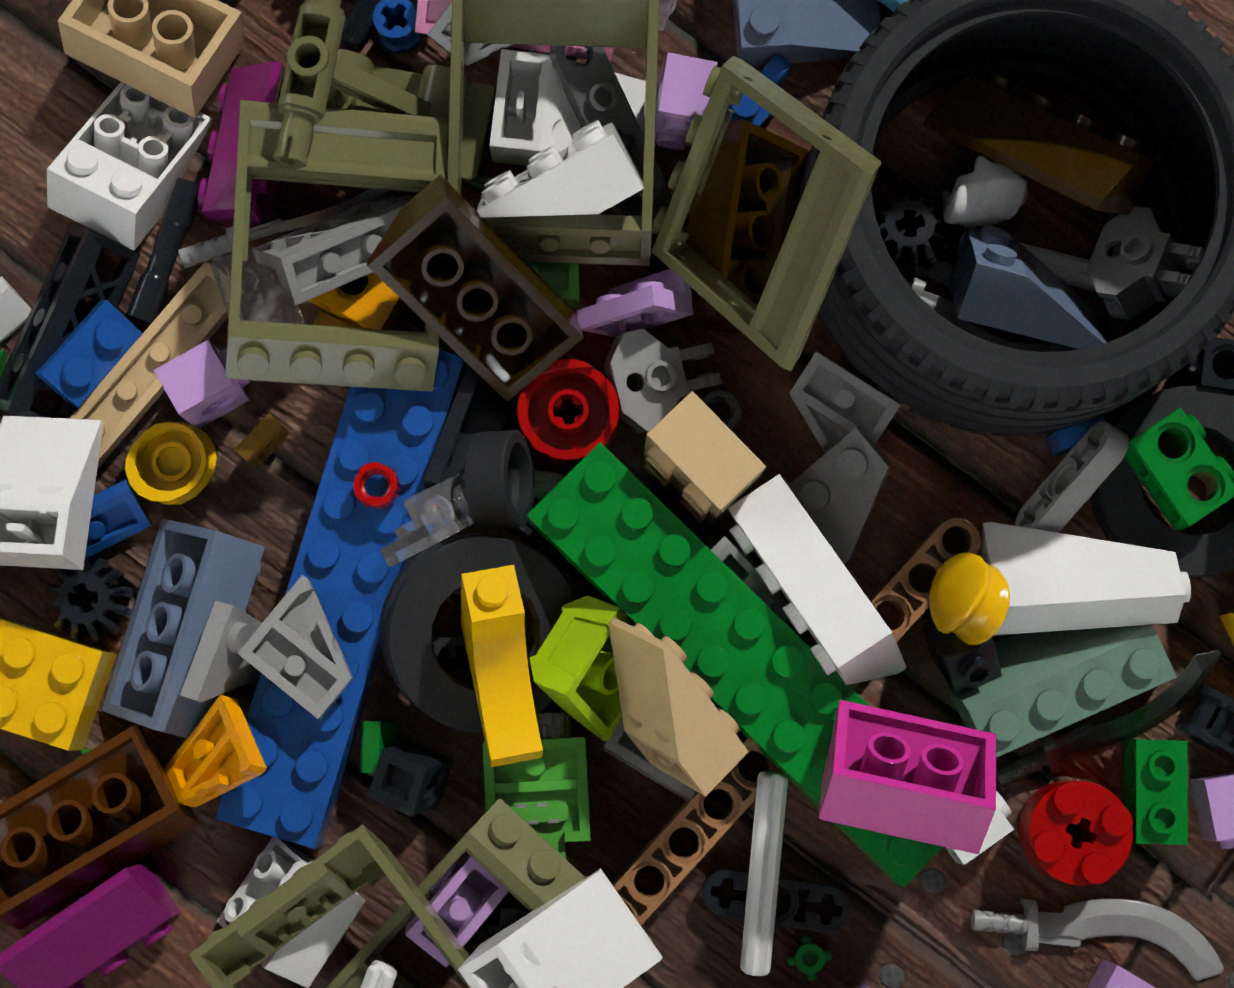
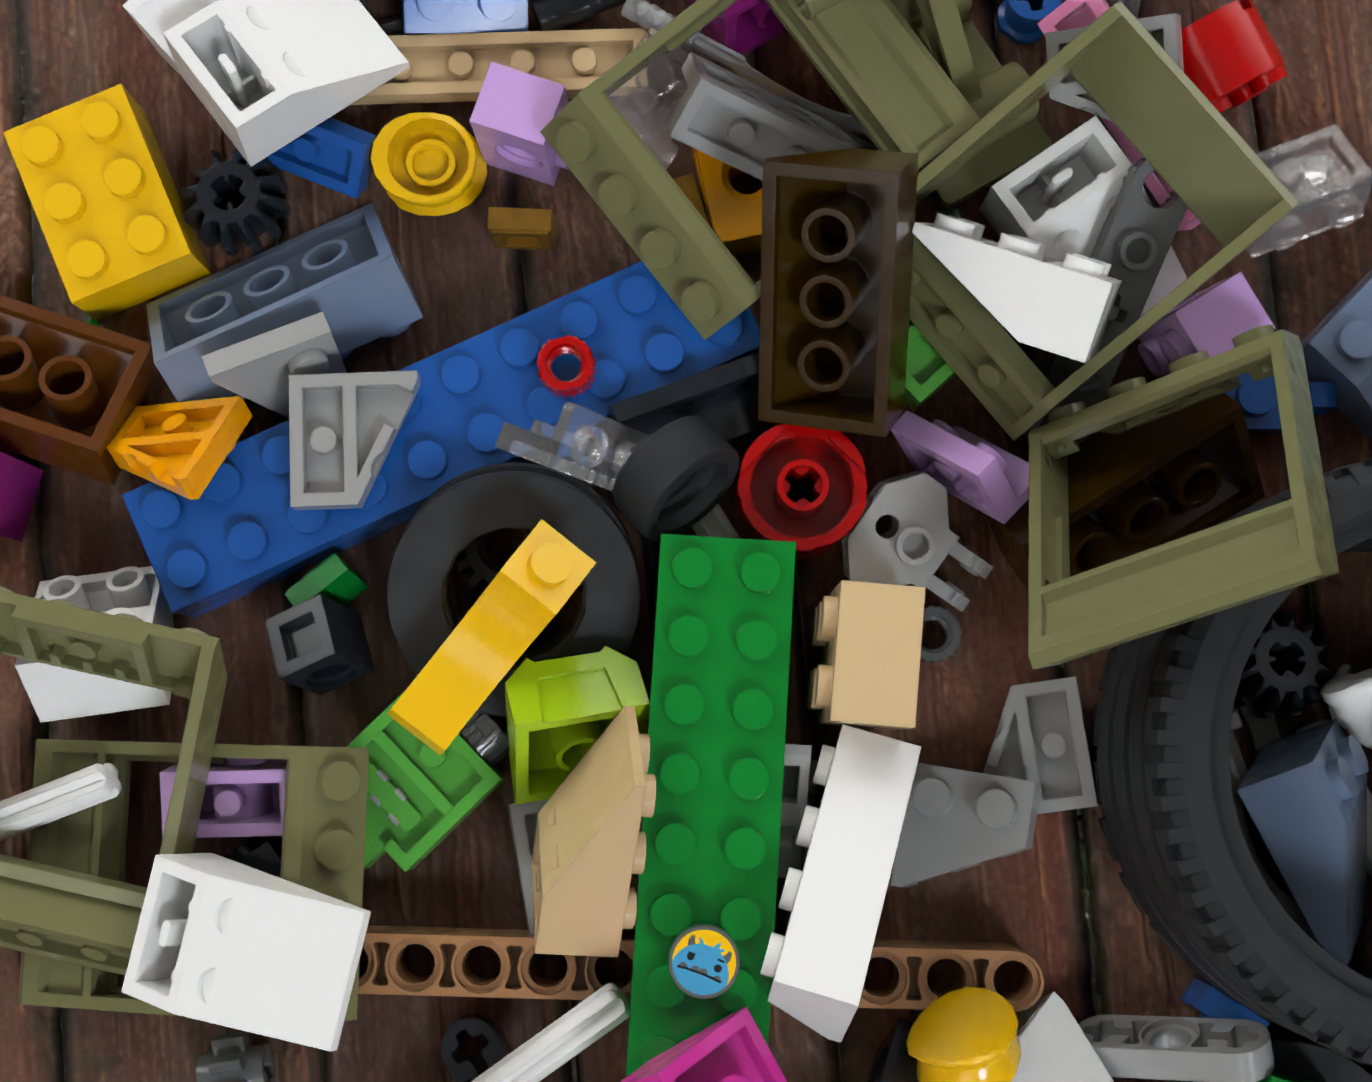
camera: 55 degrees right, 0 degrees up
(793, 701) = (703, 961): none -> tile

